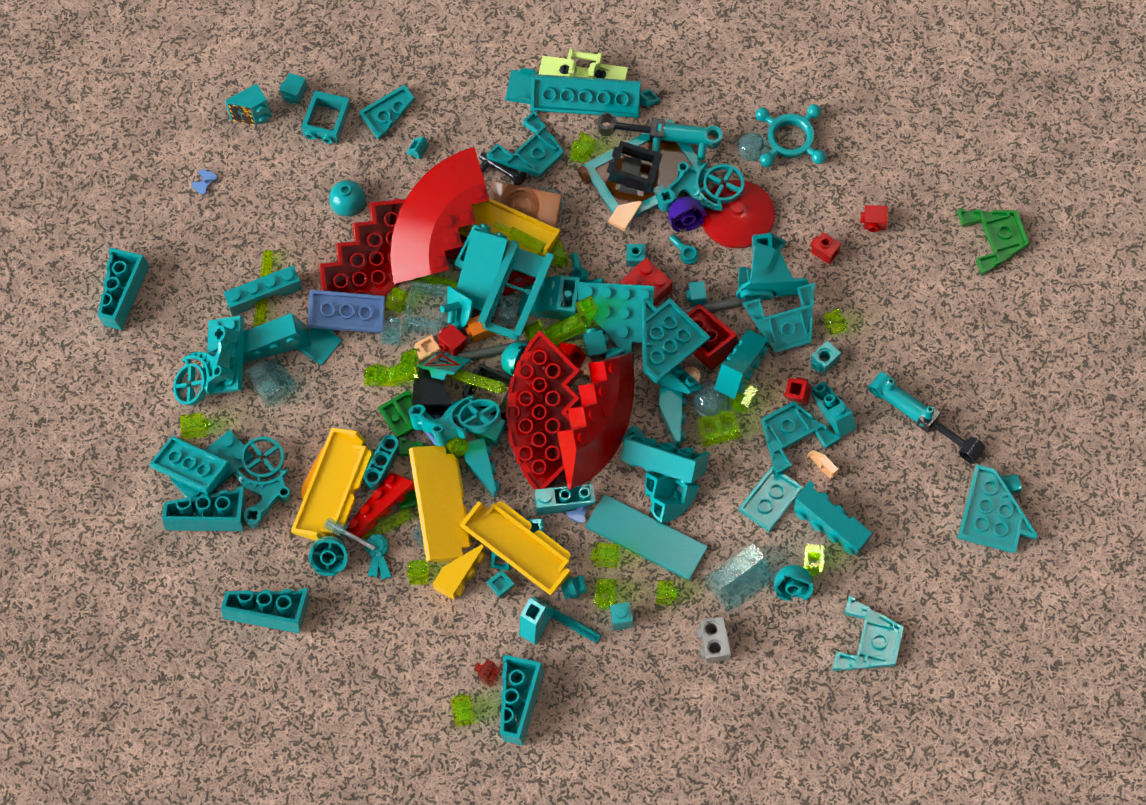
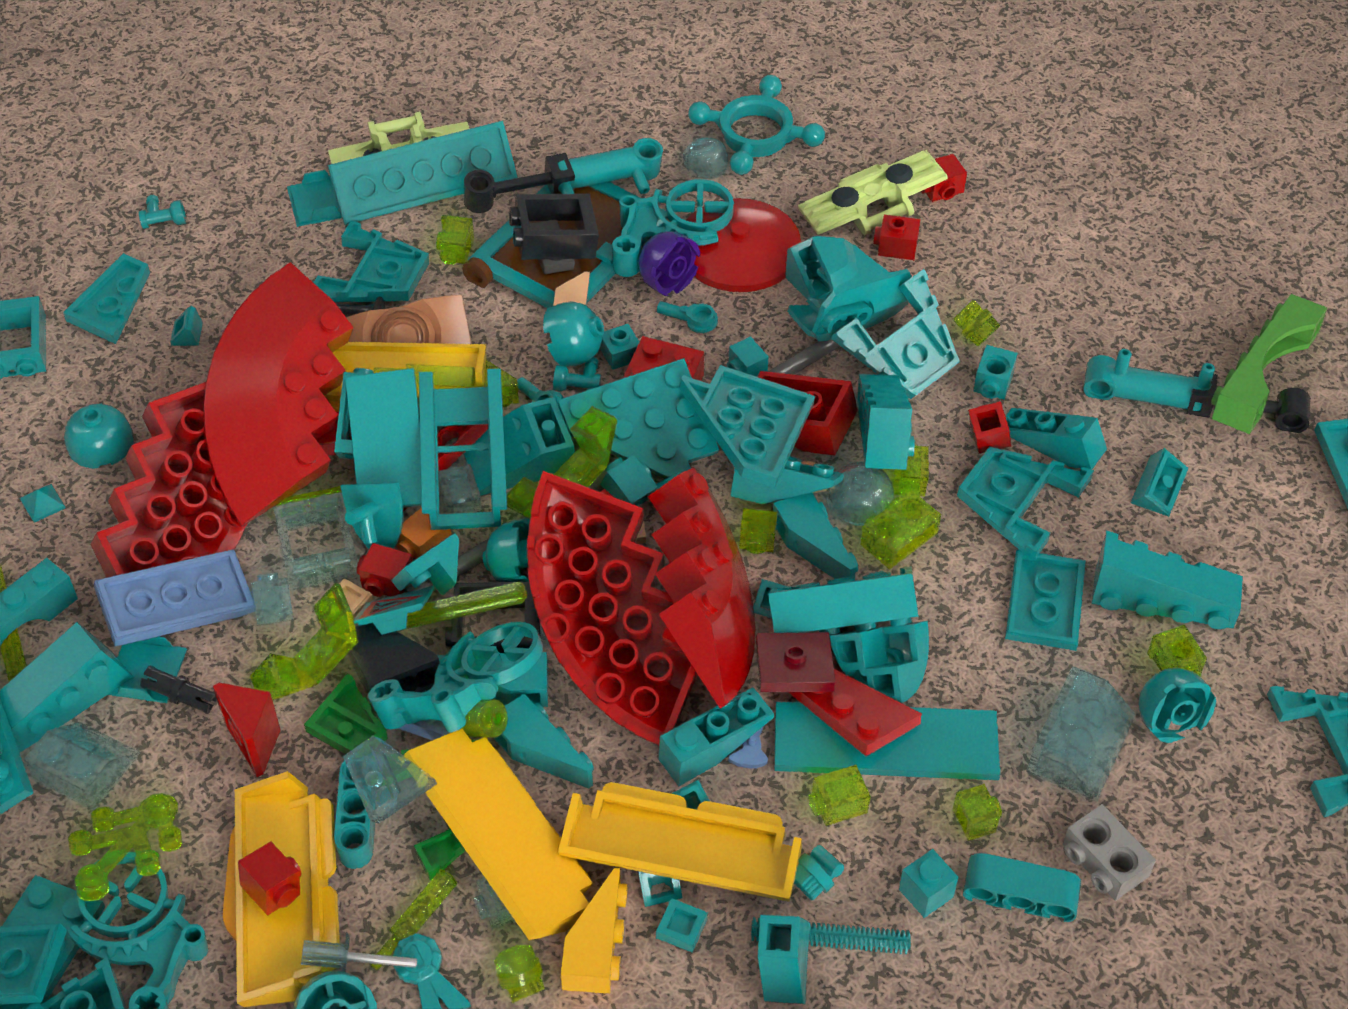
camera: 30 degrees left, 15 degrees down
(293, 421) = (154, 812): none -> clear neon green plant
(306, 225) = (42, 503): none -> teal slope
(327, 480) = (270, 878): none -> red brick
(328, 362) = (178, 689): none -> black pin
(352, 398) = (251, 722): none -> red slope
(378, 505) = (387, 880): red wing -> none
(397, 300) = (257, 549): clear neon green piece -> none
(397, 455) = (385, 778): none -> clear light blue wing
(431, 62) = (154, 215): none -> teal piece
(477, 349) = (437, 565): none -> teal slope
(605, 586) = (879, 846): clear neon green brick -> none
(610, 239) = (573, 332): none -> teal cylinder
(610, 269) = (588, 379): none -> teal piece
(620, 479) = (795, 662): none -> dark red plate
(634, 510) = (860, 713): none -> red wing
(646, 100) = (521, 151): teal slope -> none
(646, 398) = (758, 531): none -> clear neon green plate
(665, 637) = (1022, 885): none -> teal beam
(824, 464) = (1094, 514): light nougat tile -> none
(827, 207) = (883, 181): none -> yellowish green piece
(873, 460) = (1160, 483): none -> teal slope
(1003, 232) = (1124, 135): green wing -> none
(1006, 401) = (1245, 390): none -> bright green arch

